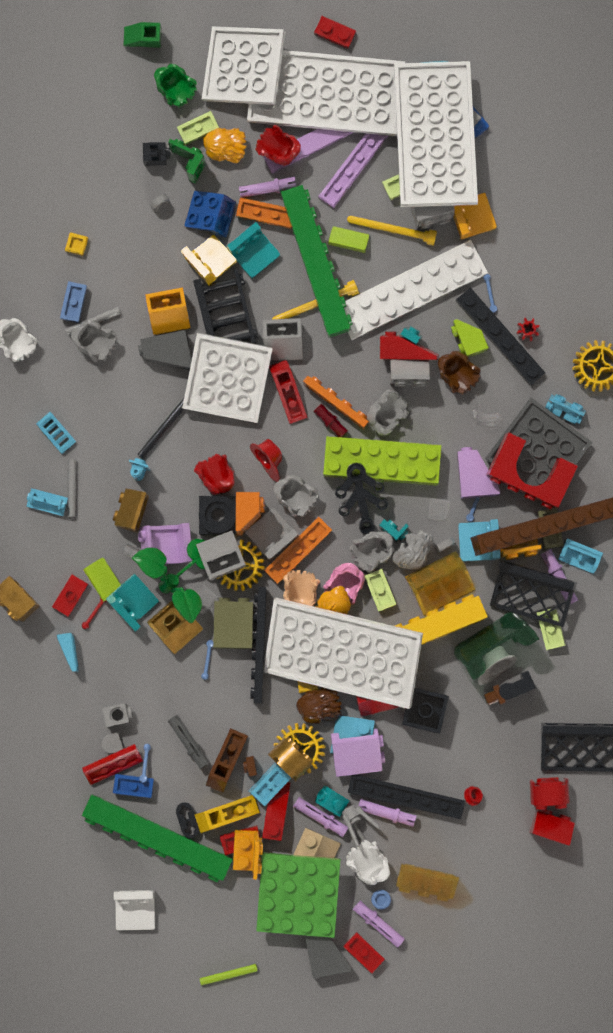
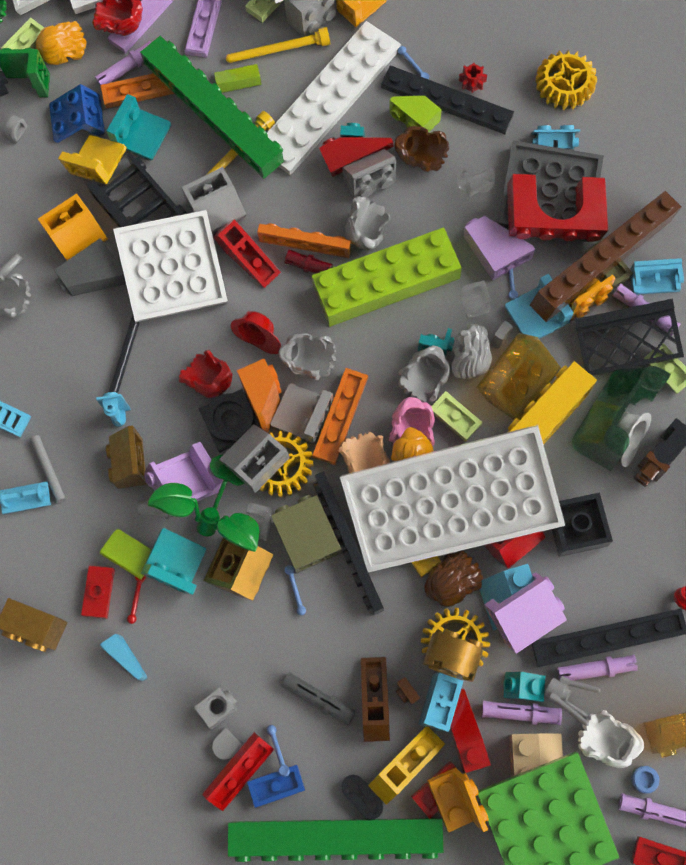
camera: 25 degrees left, 10 degrees down
(361, 495) = (381, 319): black plant -> none

